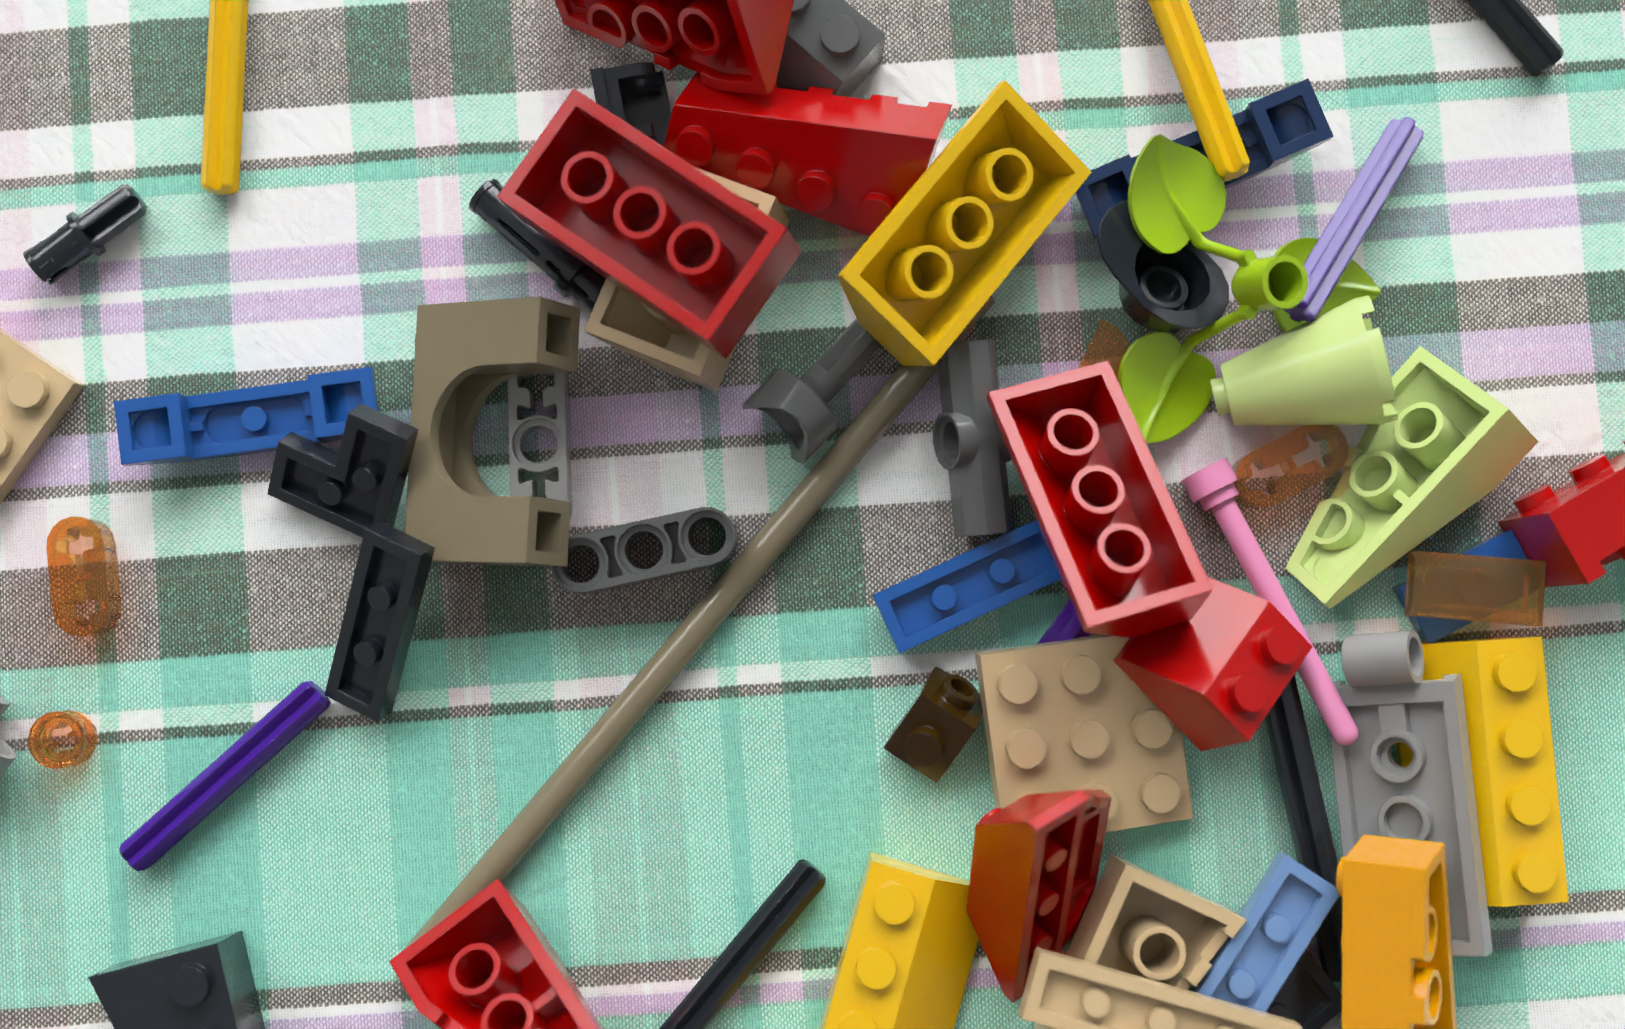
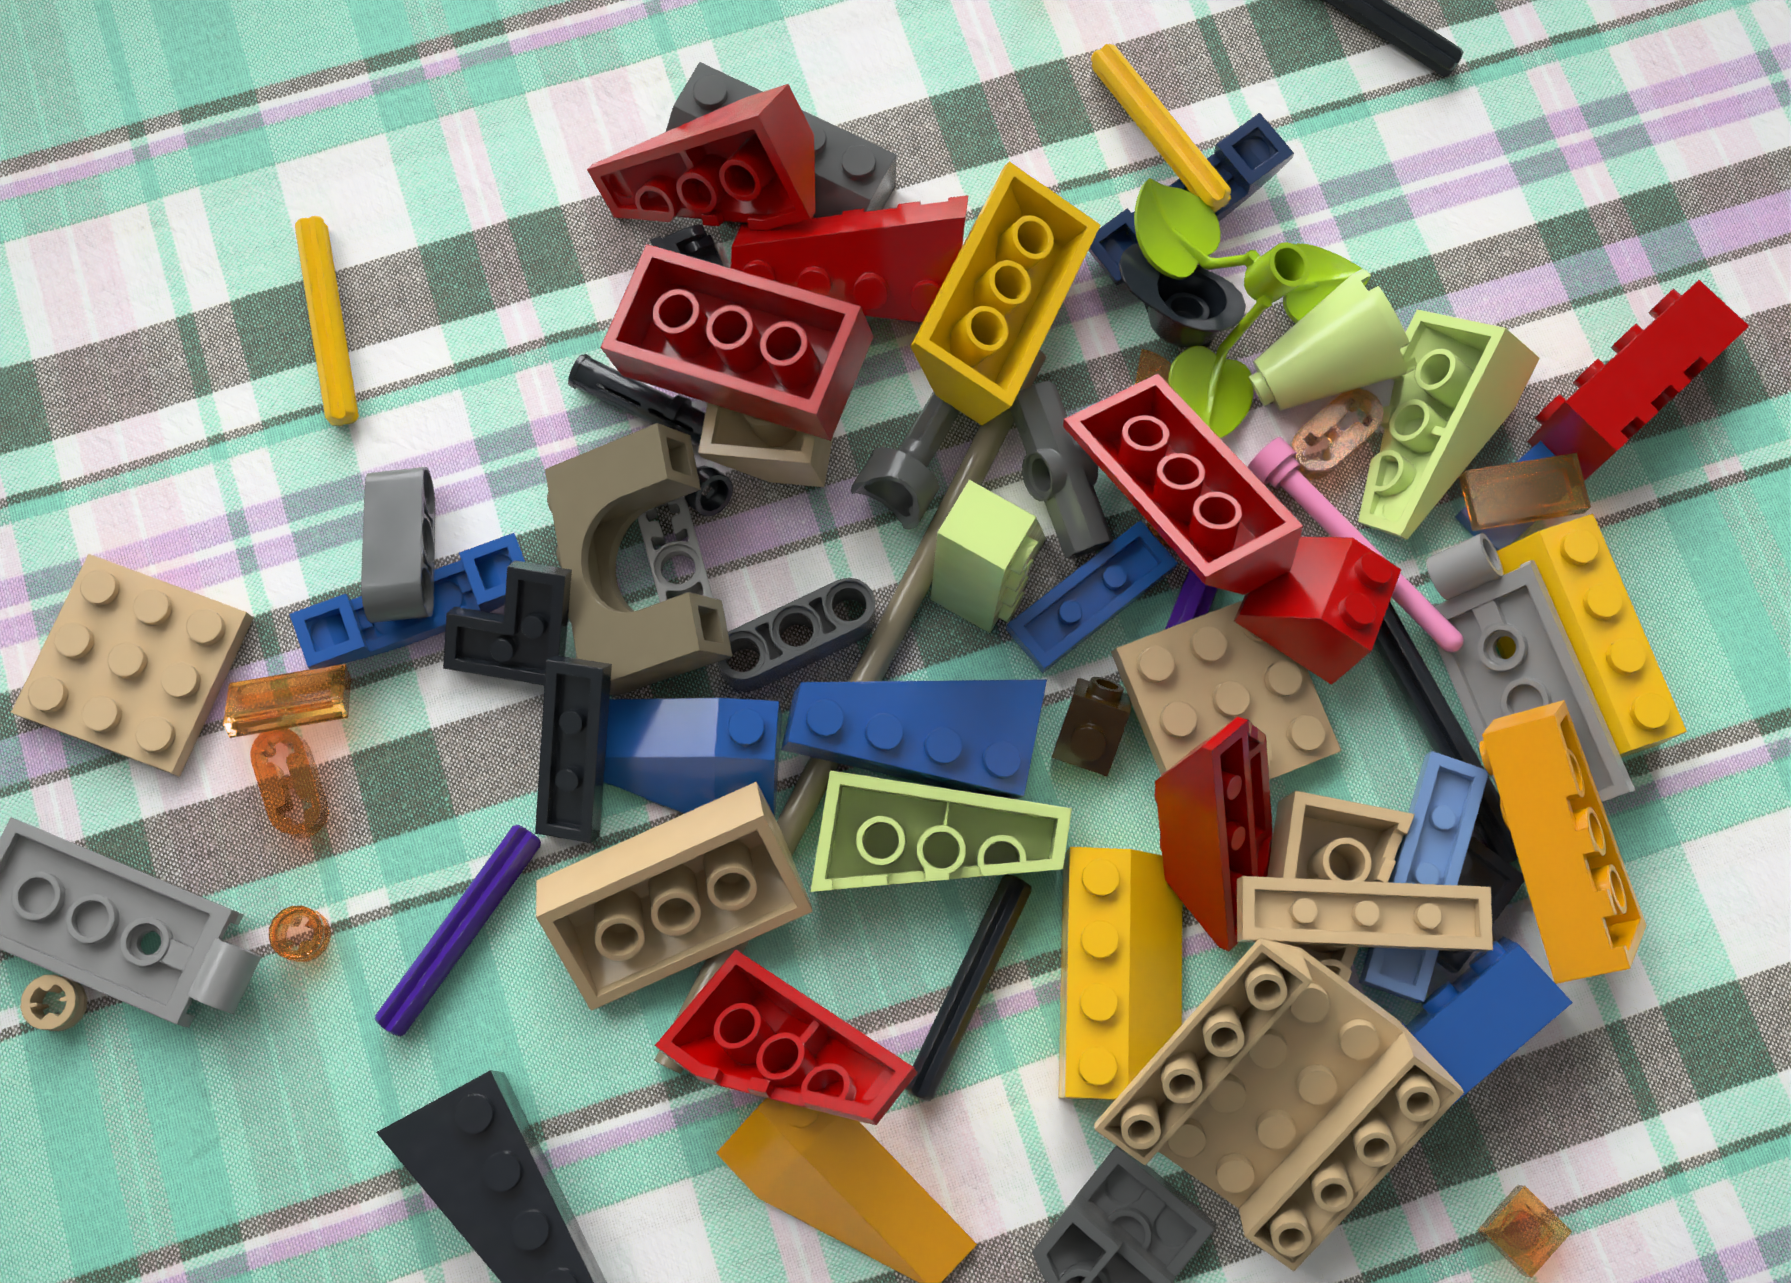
camera: 20 degrees left, 10 degrees down
(85, 234) = (230, 483): black axle -> none
(97, 490) = (287, 700): none -> clear orange tile
(245, 350) = (398, 545): none -> beam
(446, 802) = (671, 896): none -> tan slope
(511, 657) = (693, 749): none -> blue wedge
(599, 374) = (717, 497): none -> black hinge
(733, 805) = (922, 833): none -> yellowish green wedge
(760, 697) = (930, 732): none -> blue wedge
(867, 520) = (984, 557): none -> yellowish green wedge
(1356, 215) = (1331, 215): axle -> none

